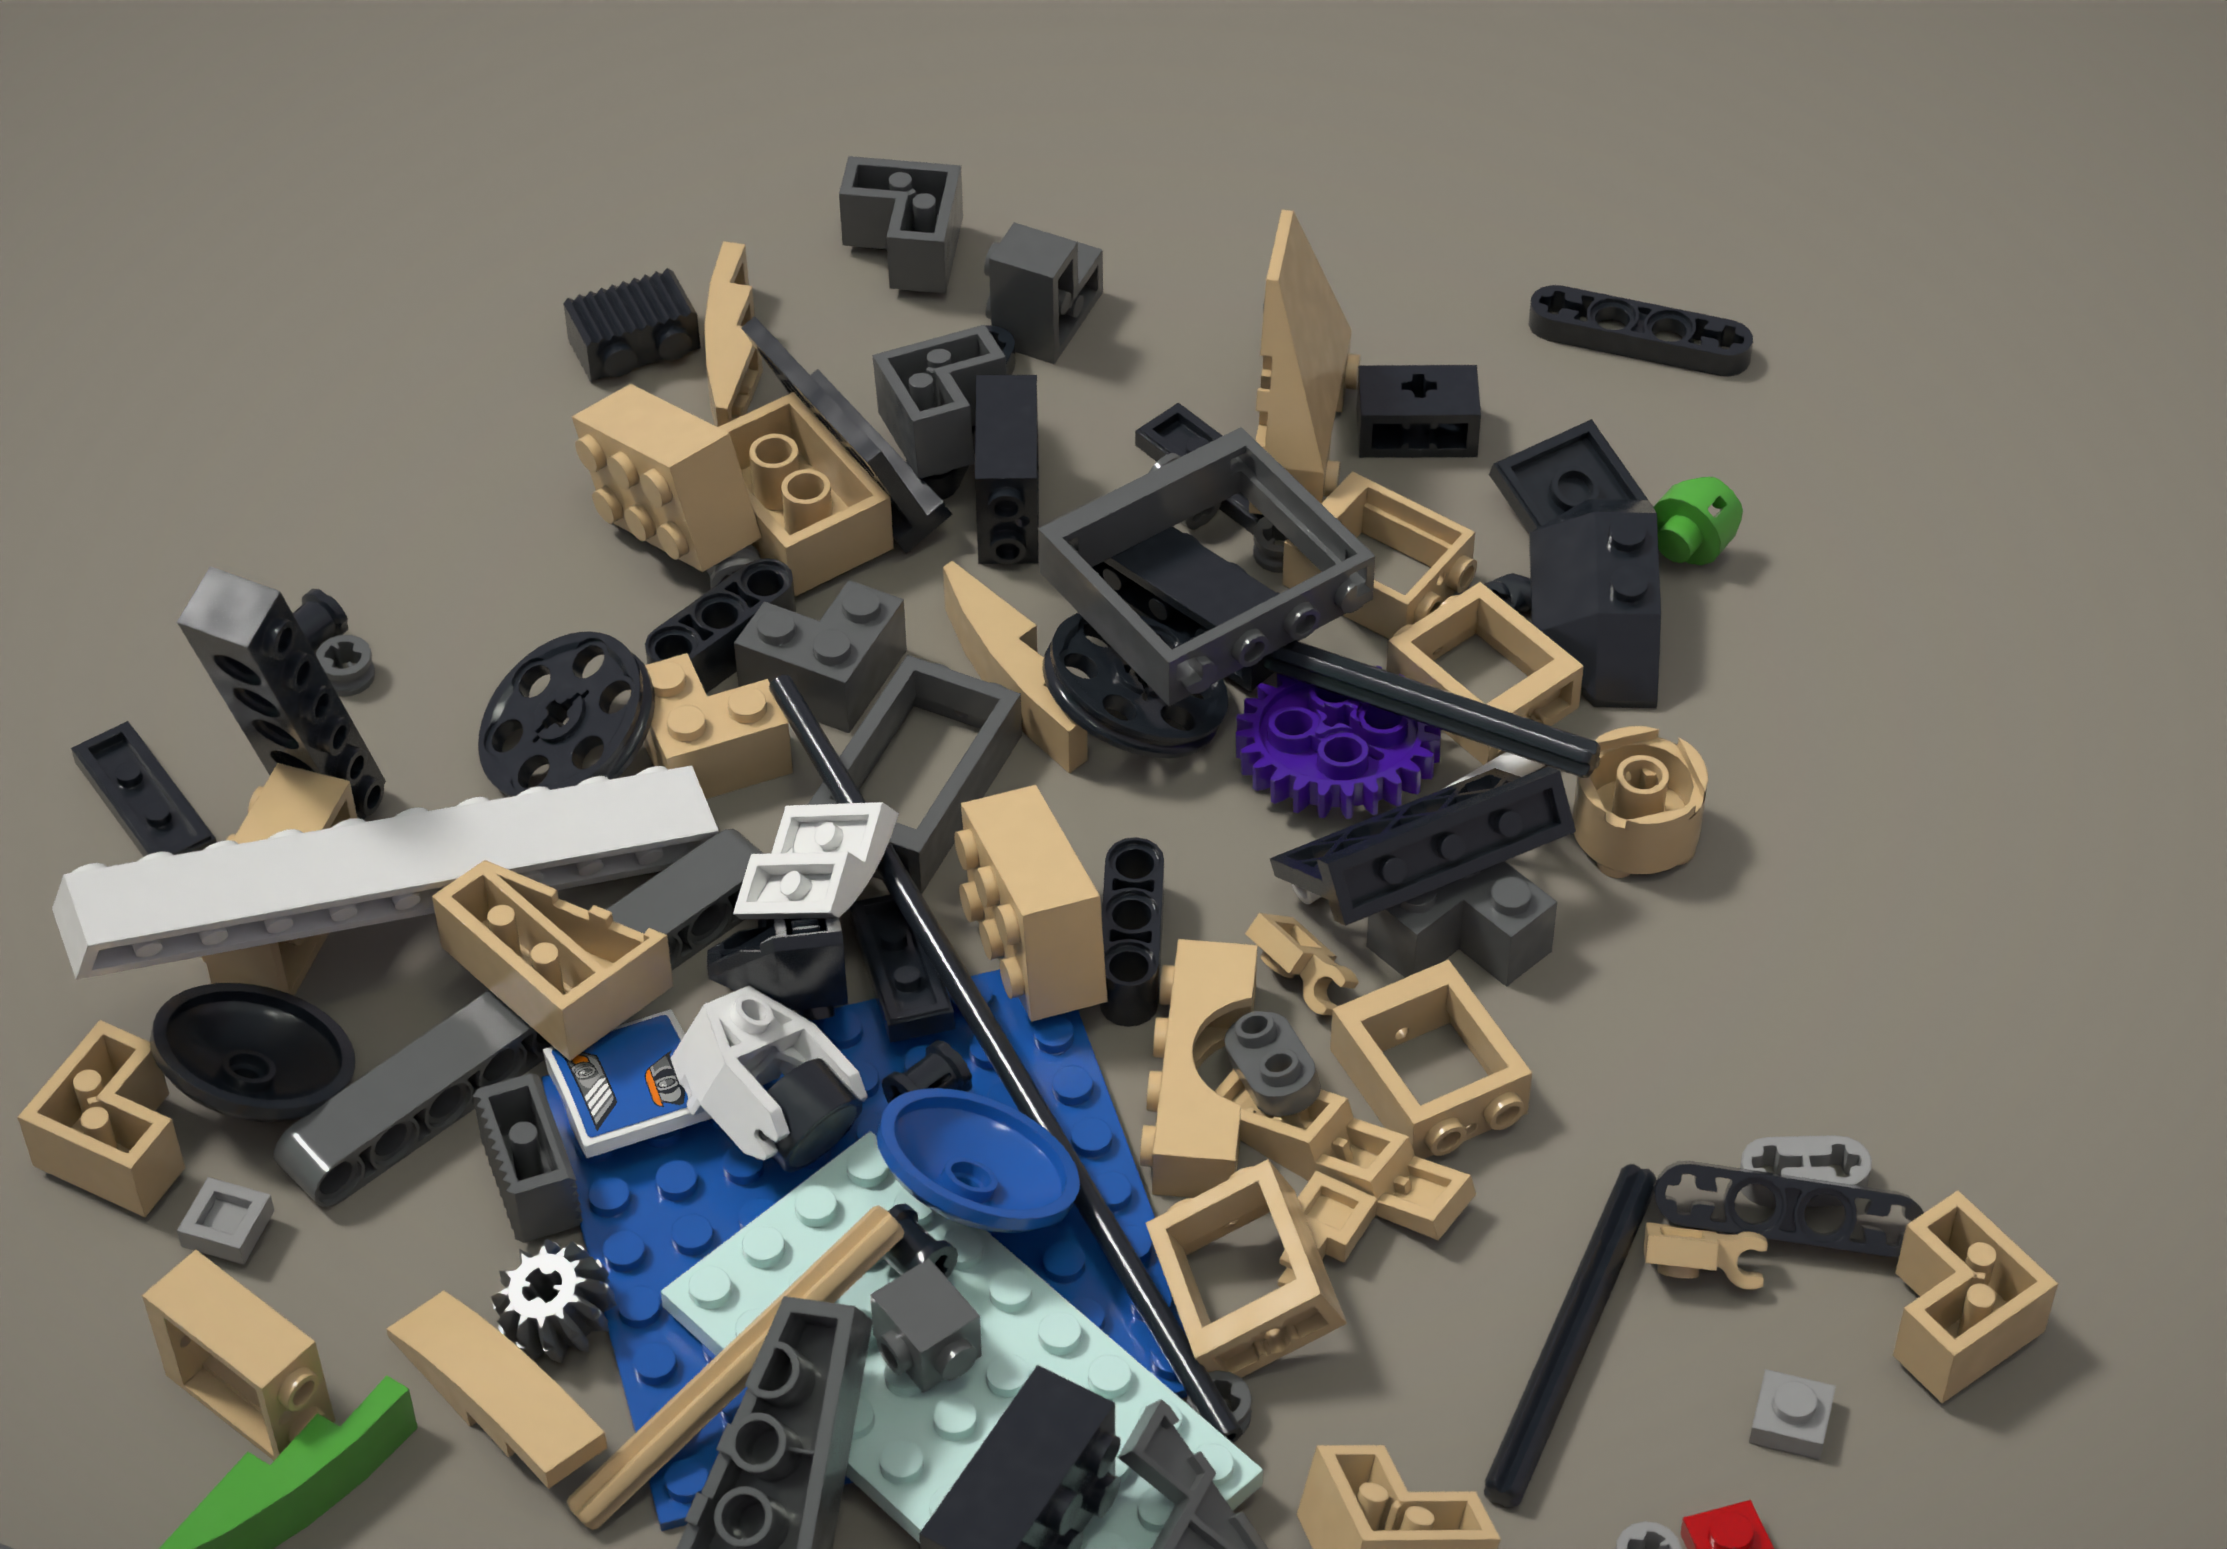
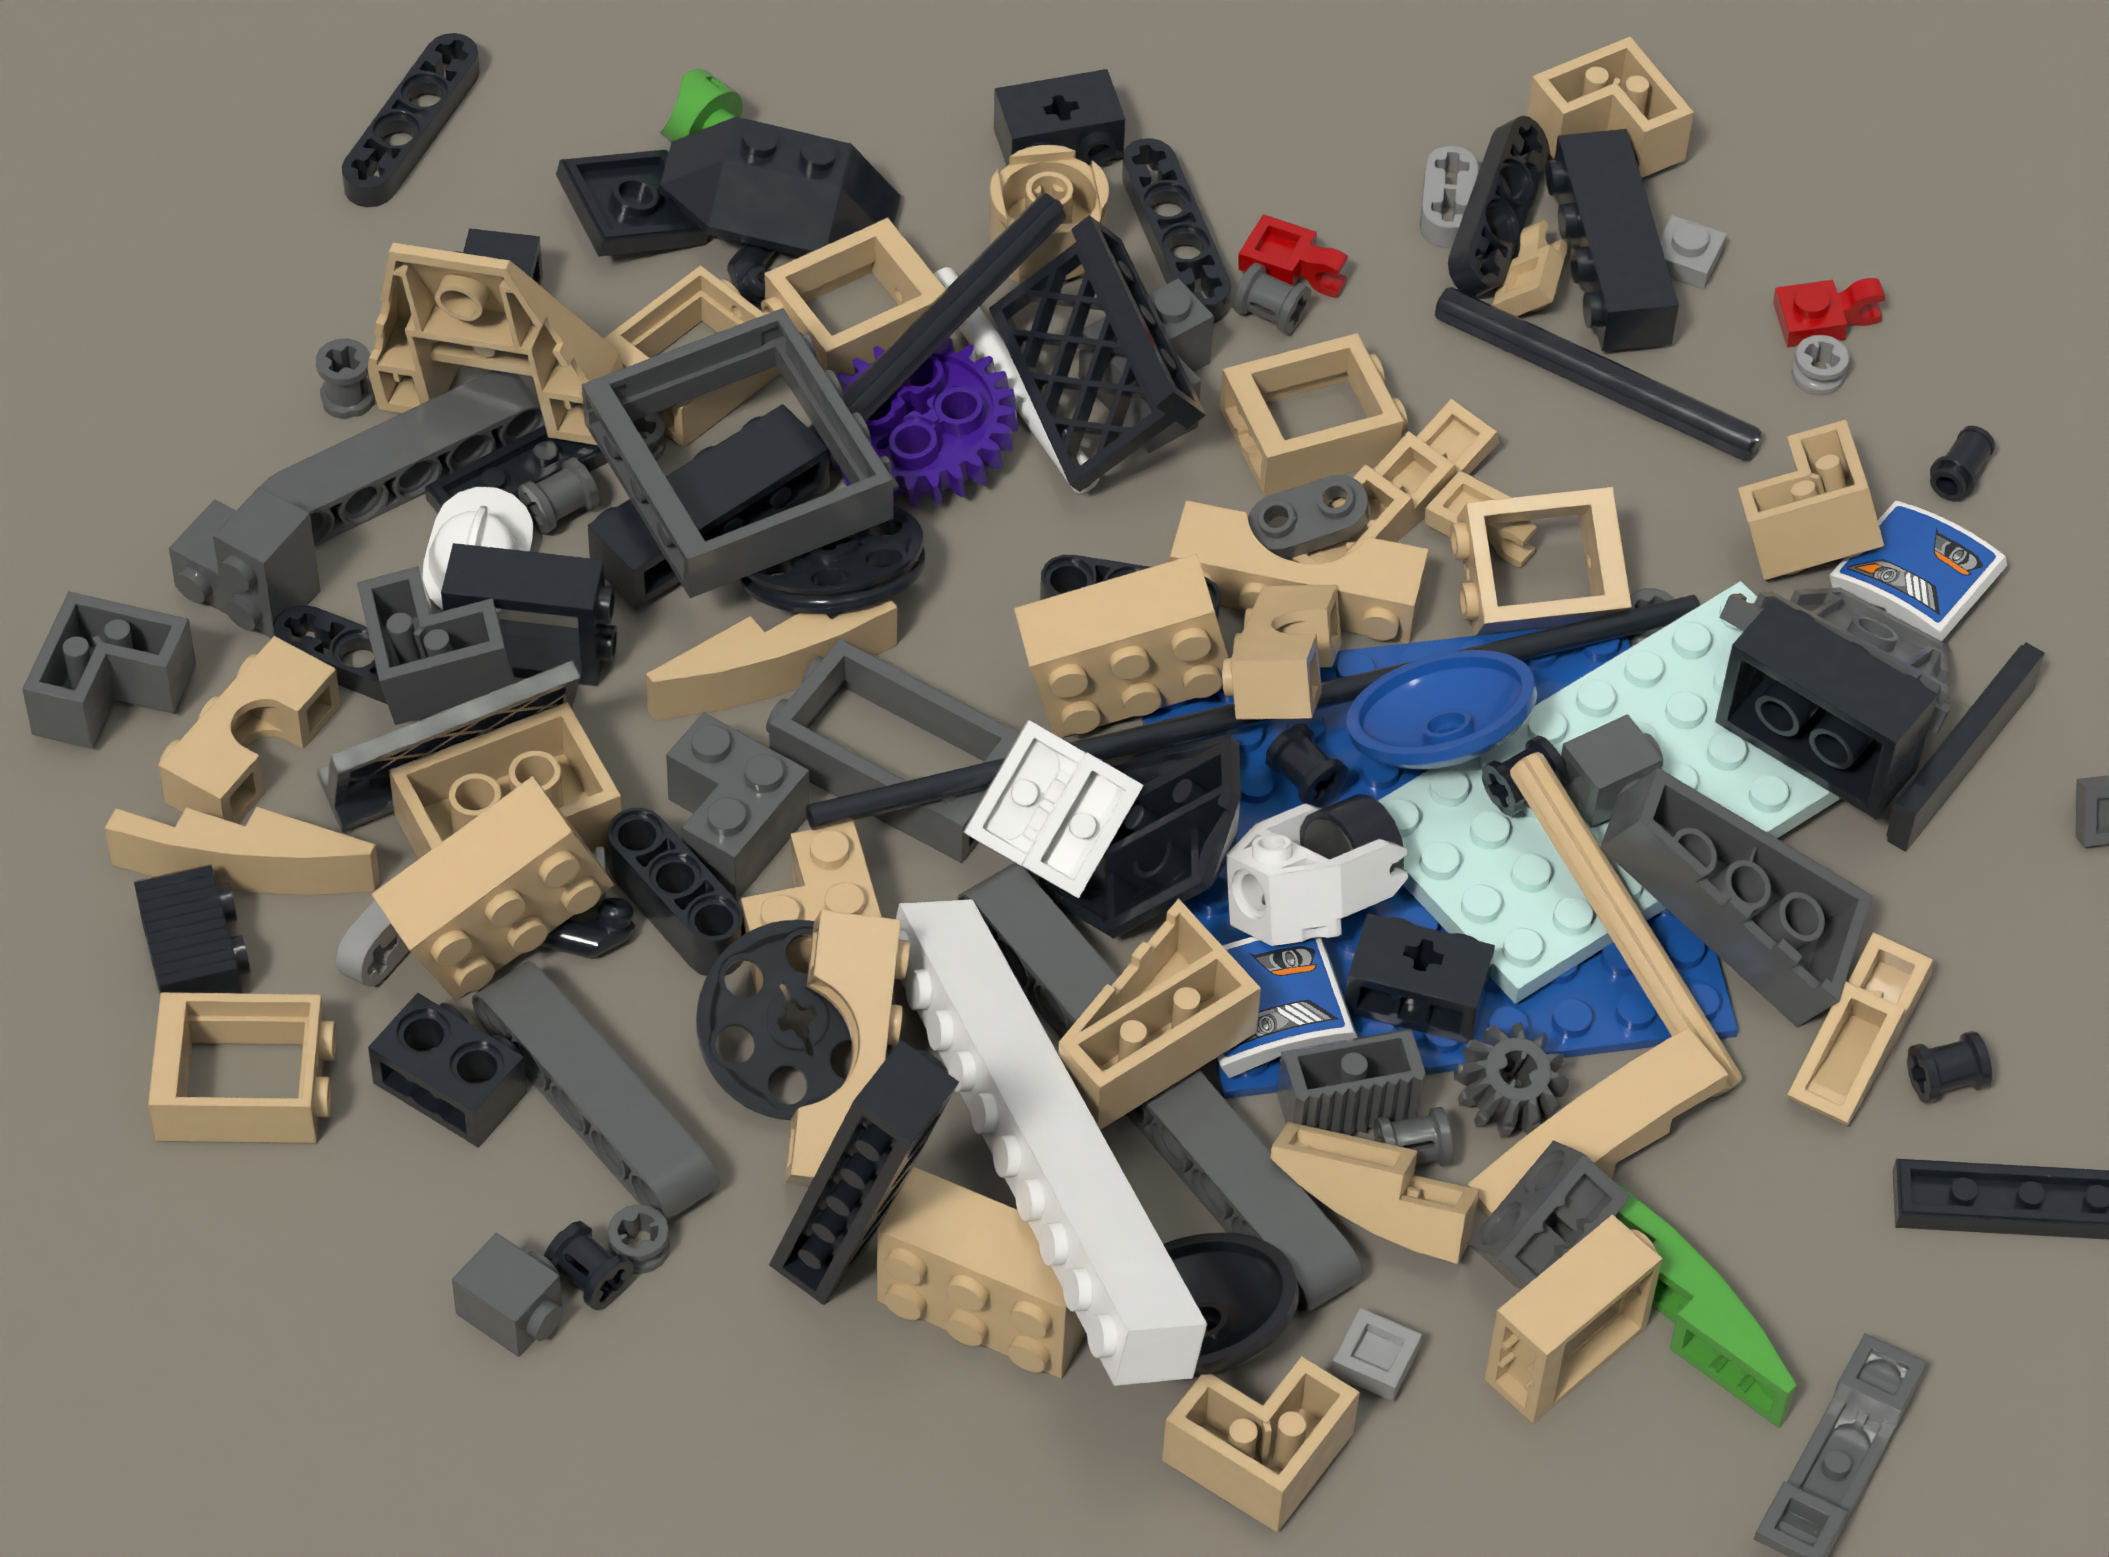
camera: 85 degrees left, 5 degrees up
(141, 793) = (794, 1433): black tile -> none
(278, 563) = (509, 1294): none -> dark grey brick
(360, 1324) = (1547, 1214): none -> dark grey brick
(405, 1194) = (1378, 1189): none -> tan slope
(466, 342) = (239, 1020): none -> tan window
(480, 1230) = (1426, 1134): none -> dark grey bush
(492, 609) = (597, 1092): none -> dark grey beam
(508, 507) = (440, 1078): none -> black brick
(579, 724) = (855, 970): none -> tan arch
(662, 1199) = (1419, 978): none -> black brick
(674, 587) = (596, 935): none -> black arm
(822, 309) = (274, 695): none -> tan arch
(1101, 1048) = (1281, 652): none -> tan arch
(1102, 446) = (474, 518): none -> white piece
(1177, 359) = (407, 453): none -> dark grey beam
(1295, 951) = (1167, 492): tan plate -> none
(1594, 1005) = (1271, 298): none -> dark grey bush
(1660, 1020) = (1291, 253): none -> red plate
(1670, 921) = (1181, 229): none -> black beam
(1760, 1316) = (1612, 240): none -> black brick
(1786, 807) = (1062, 111): none -> black brick

